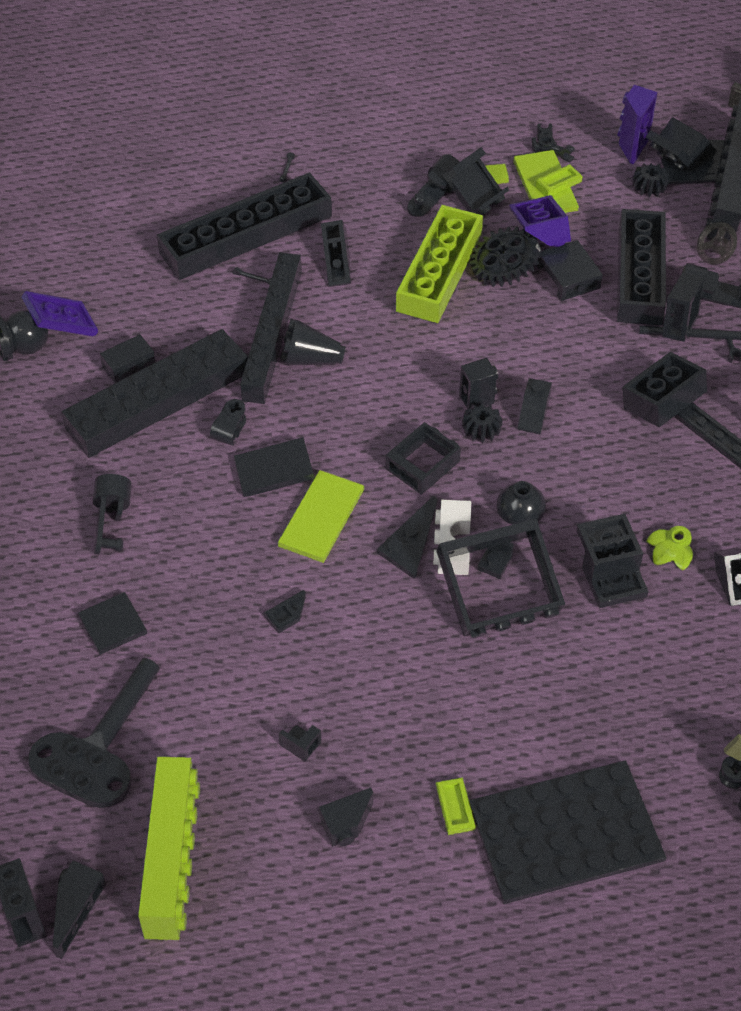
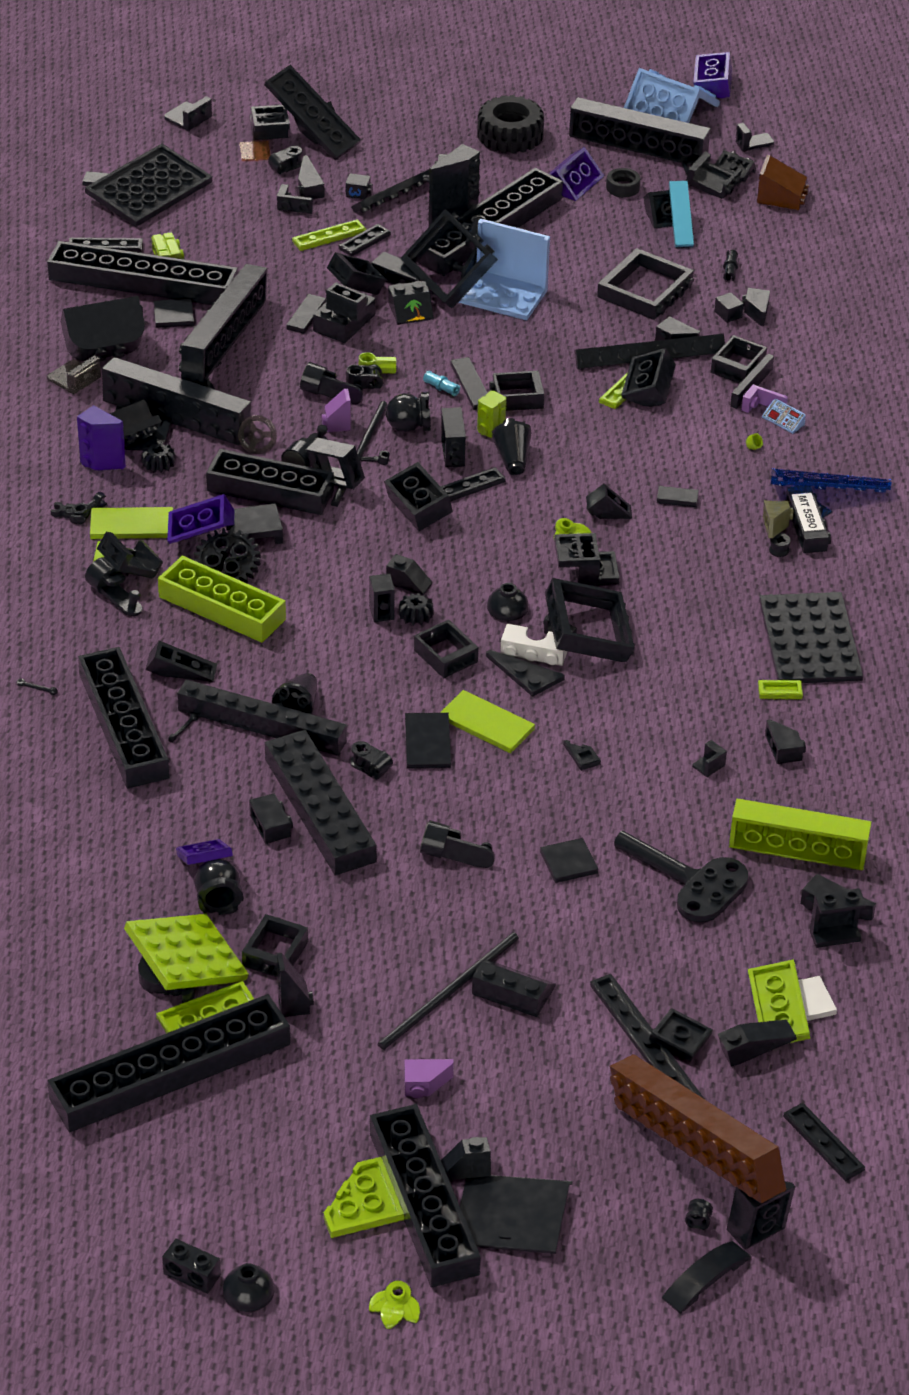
camera: 80 degrees left, 10 degrees down
(559, 180) = (138, 510): lime tile -> none

